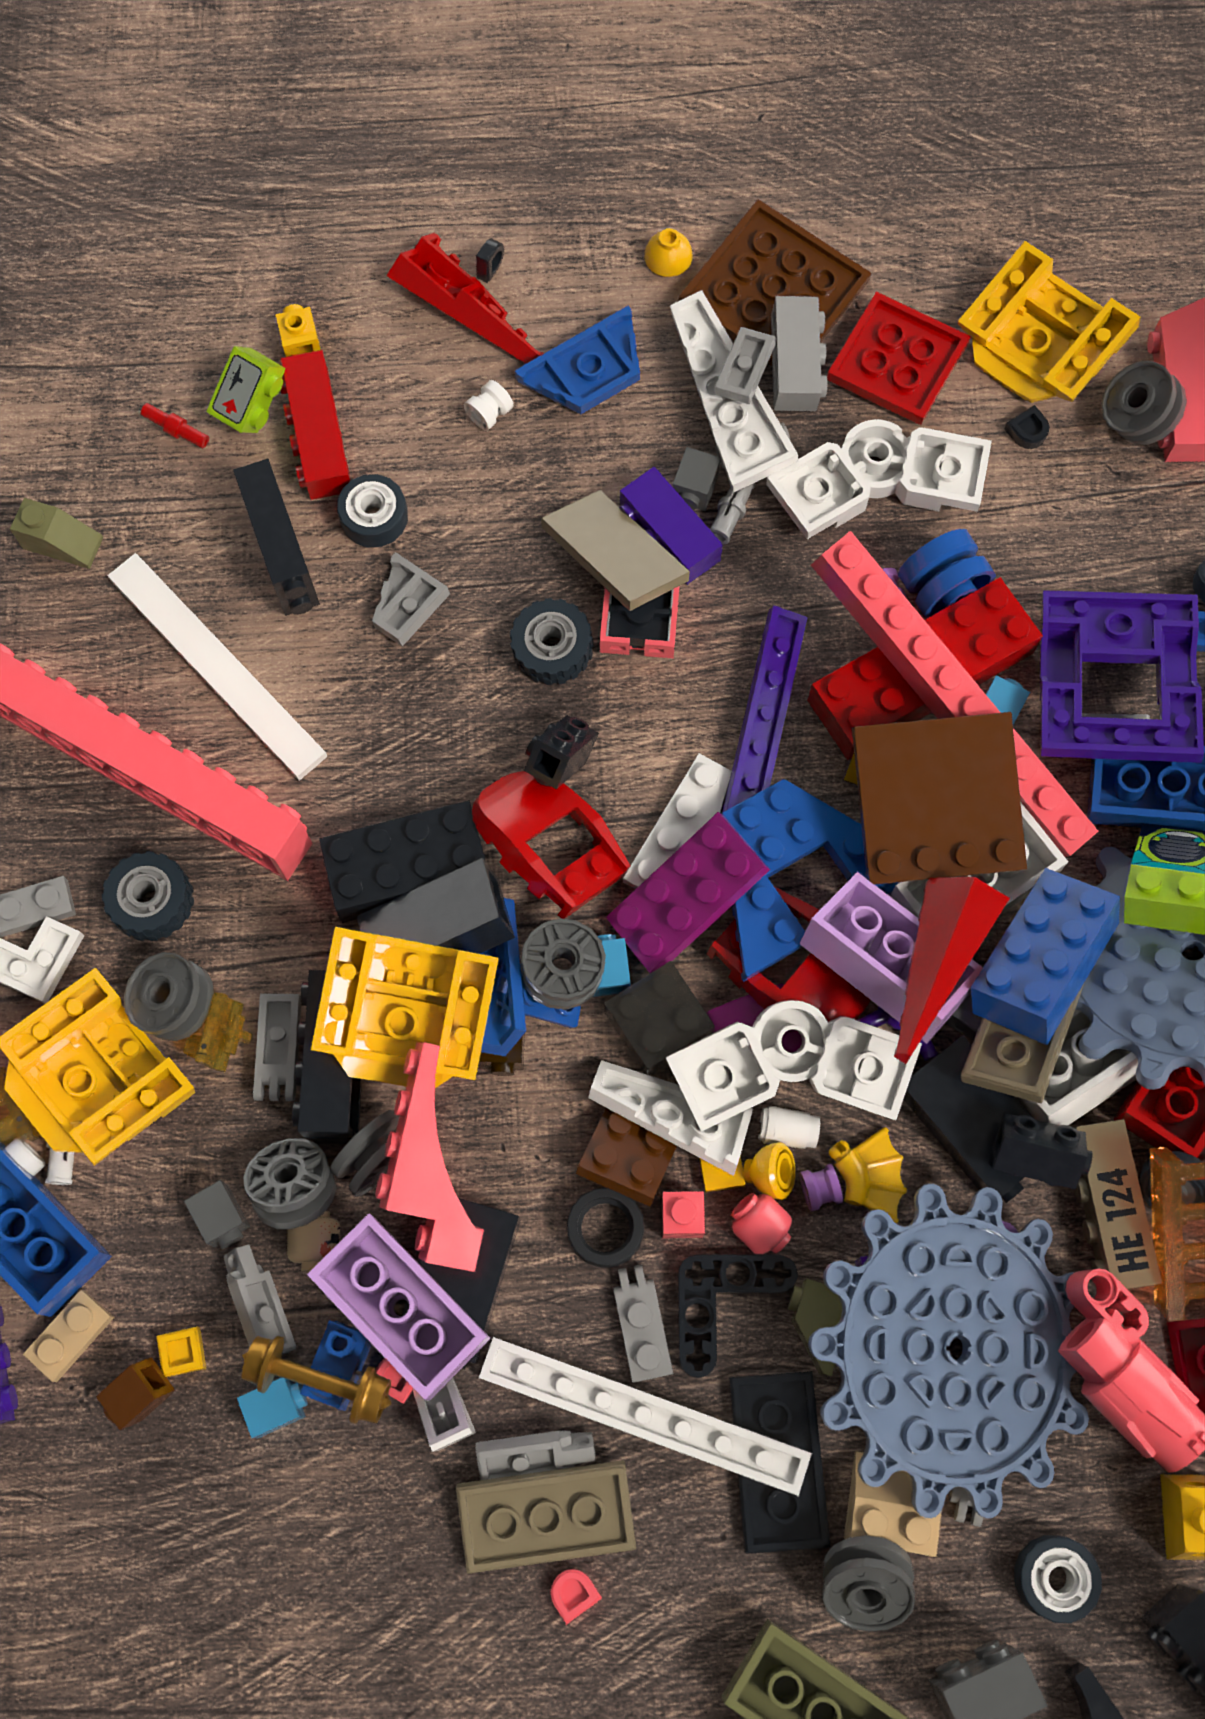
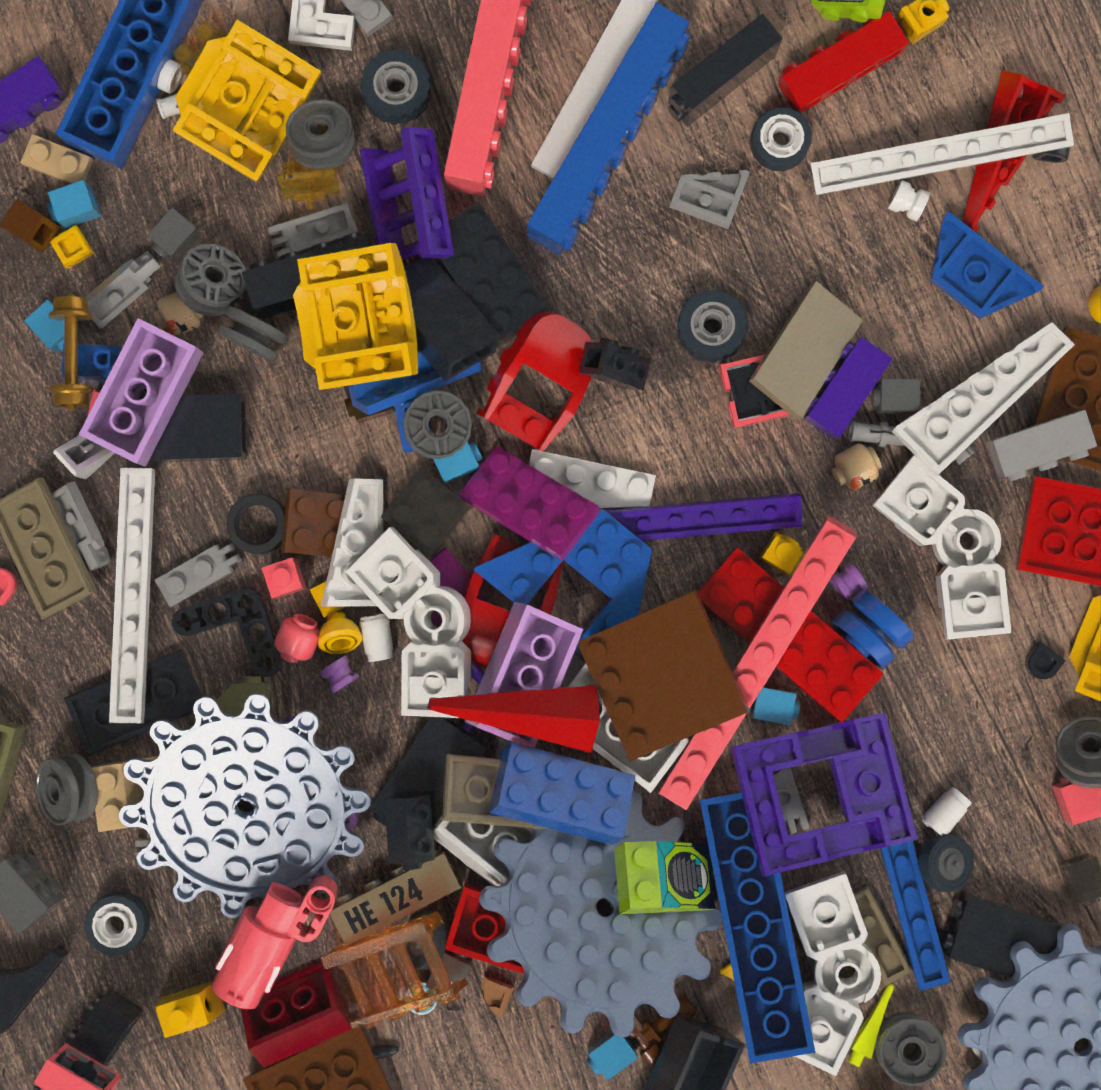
camera: 75 degrees right, 15 degrees up
(131, 1329) = (73, 204): none -> dark azure brick
(283, 885) = (426, 194): none -> dark purple fence
(294, 676) = (608, 129): none -> blue brick
(417, 1174) = (233, 371): coral arch -> none
(453, 356) = (943, 154): none -> white plate
(745, 365) = (1006, 404): light grey plate -> none
(759, 543) = (856, 466): none -> tan head
(831, 646) = (781, 553): none -> yellow brick
(871, 1173) = (364, 709): yellow arm -> none
(1168, 567) = (946, 812): none -> white piece

